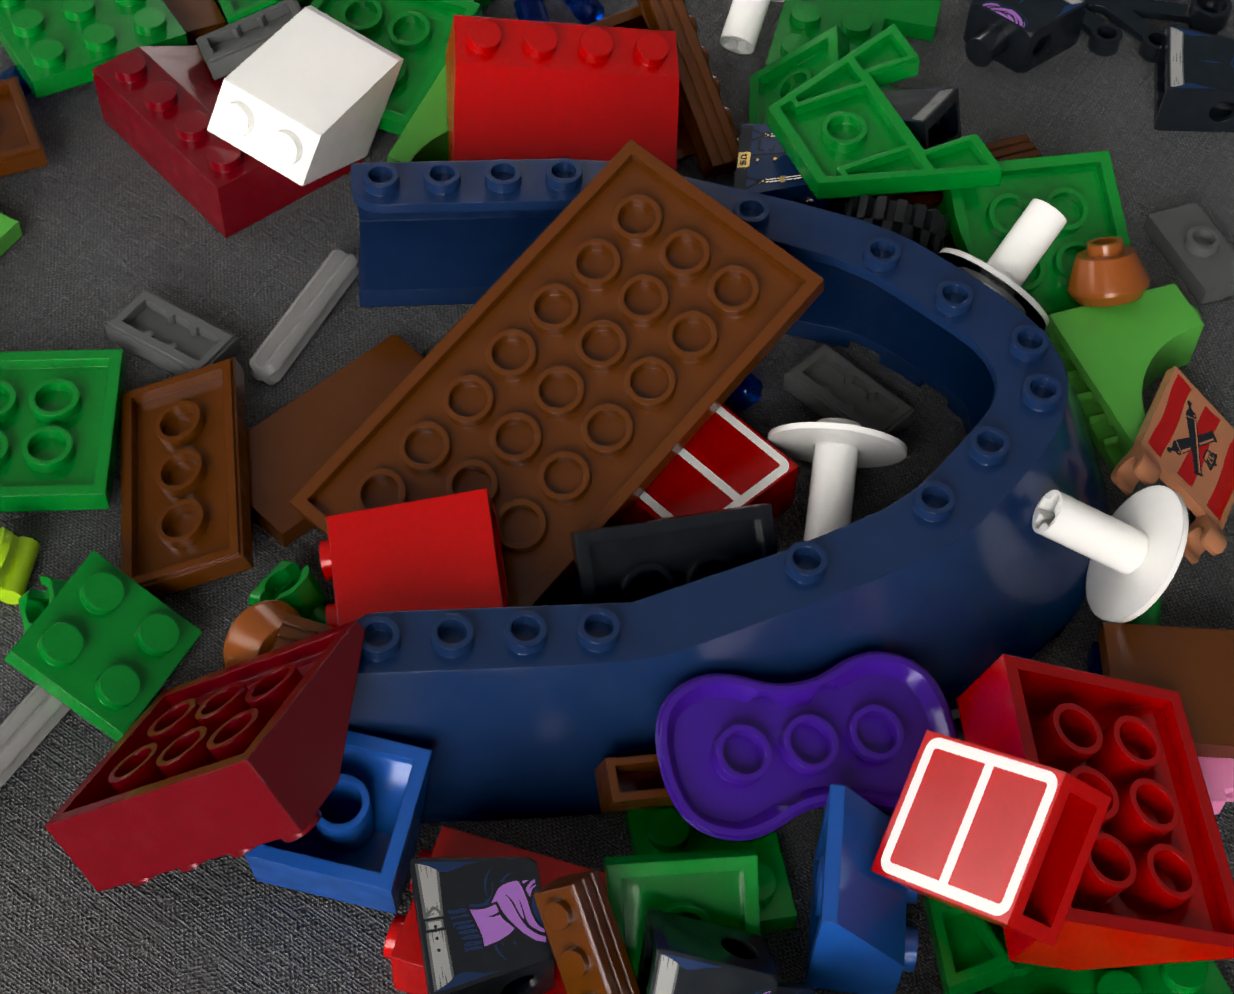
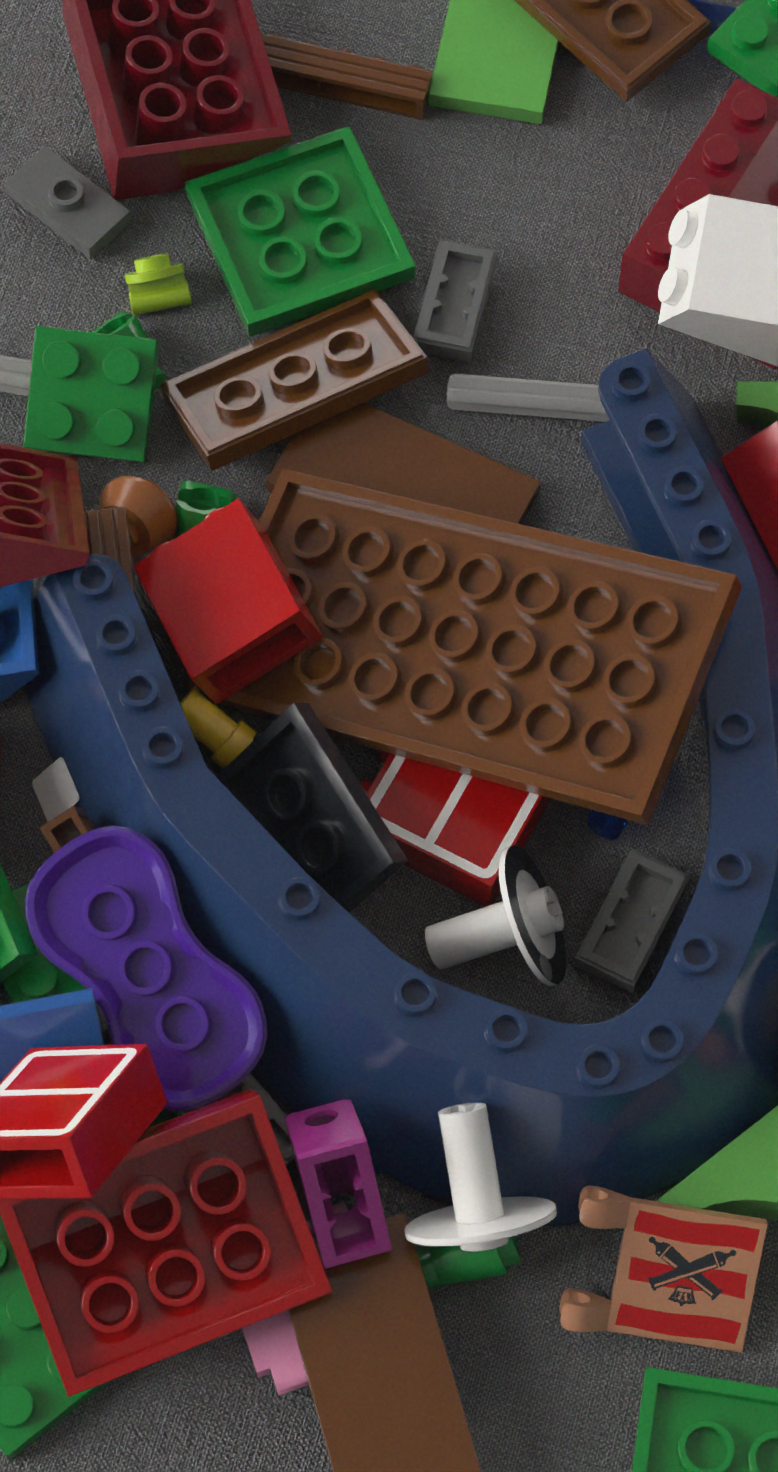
camera: 75 degrees right, 15 degrees up
(539, 816) = (55, 789): none -> white sticker
(1077, 628) = (335, 1160): none -> magenta torso

